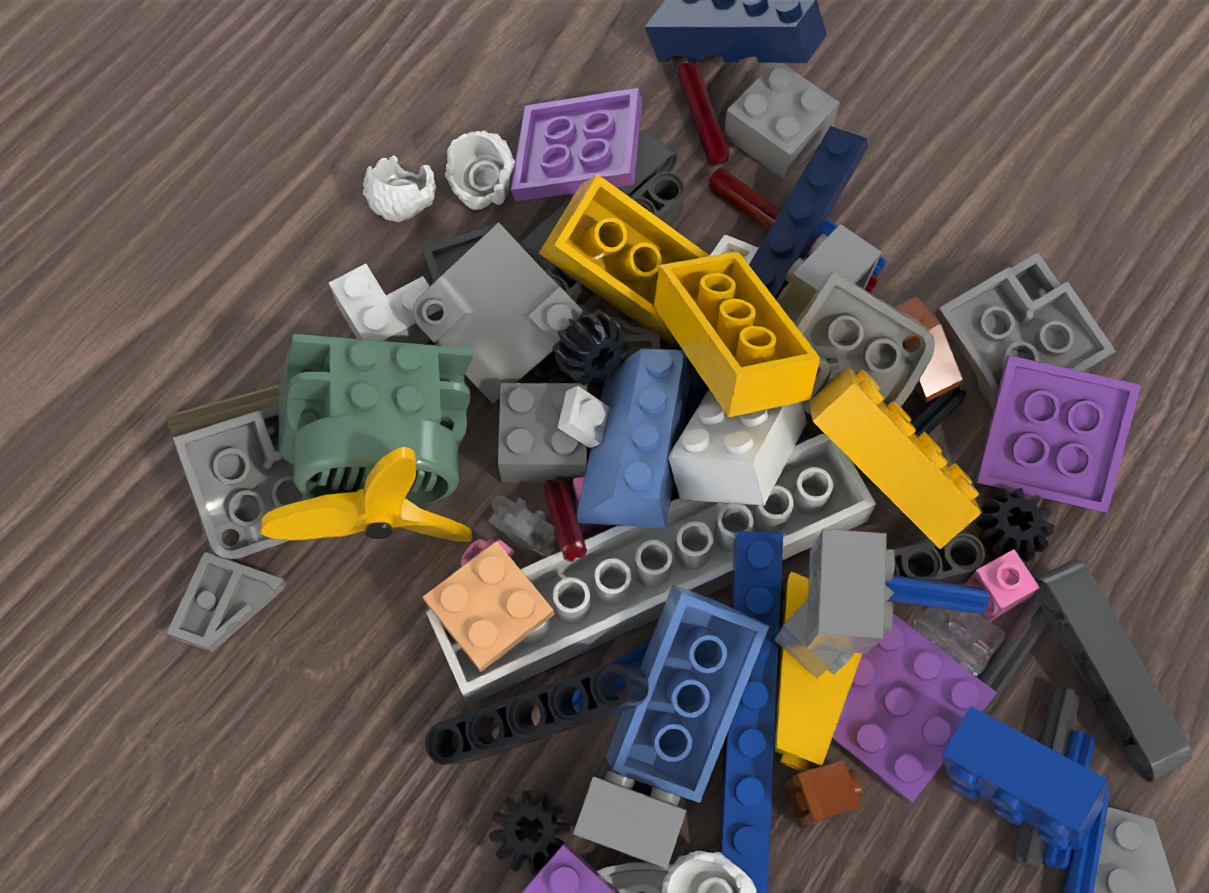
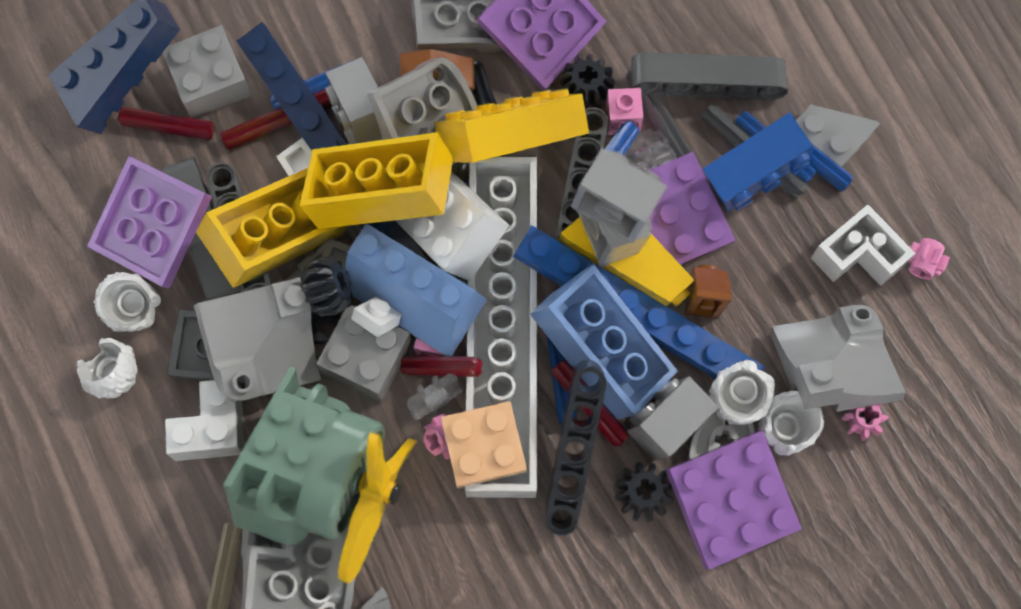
camera: 65 degrees left, 5 degrees up
(602, 730) = (608, 424): none -> dark red axle

